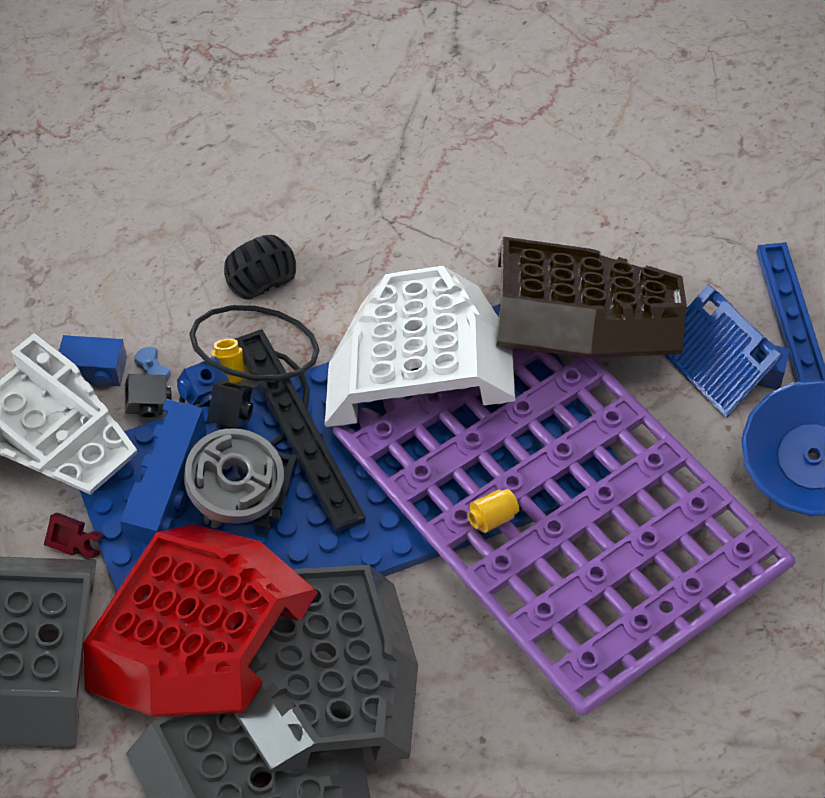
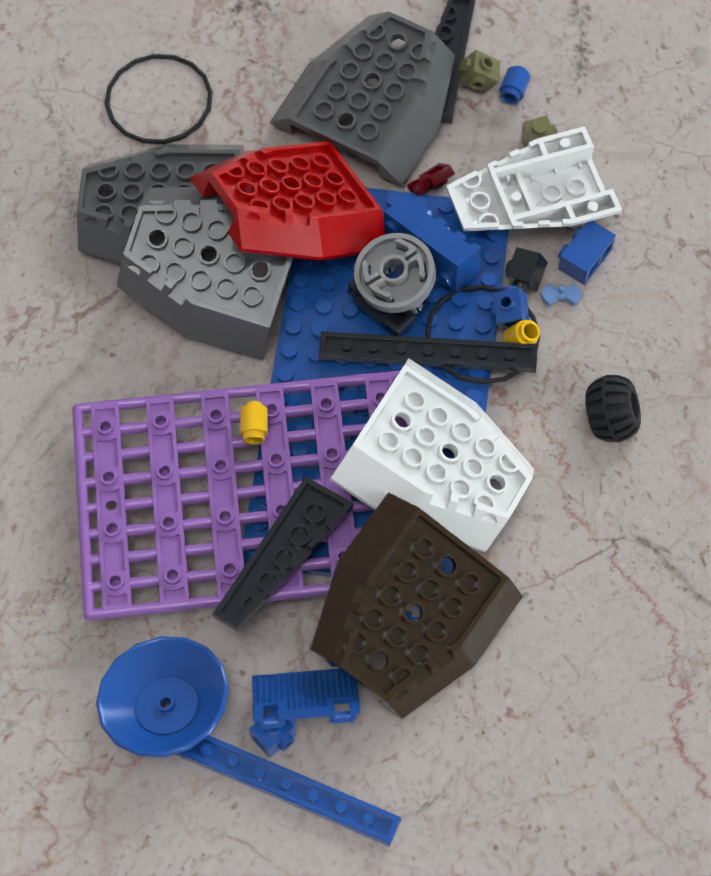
camera: 120 degrees right, 10 degrees up
(201, 353) = (576, 337): black piece -> none
(230, 405) = (470, 308): black brick -> none
(581, 415) = (293, 536): none -> black wing

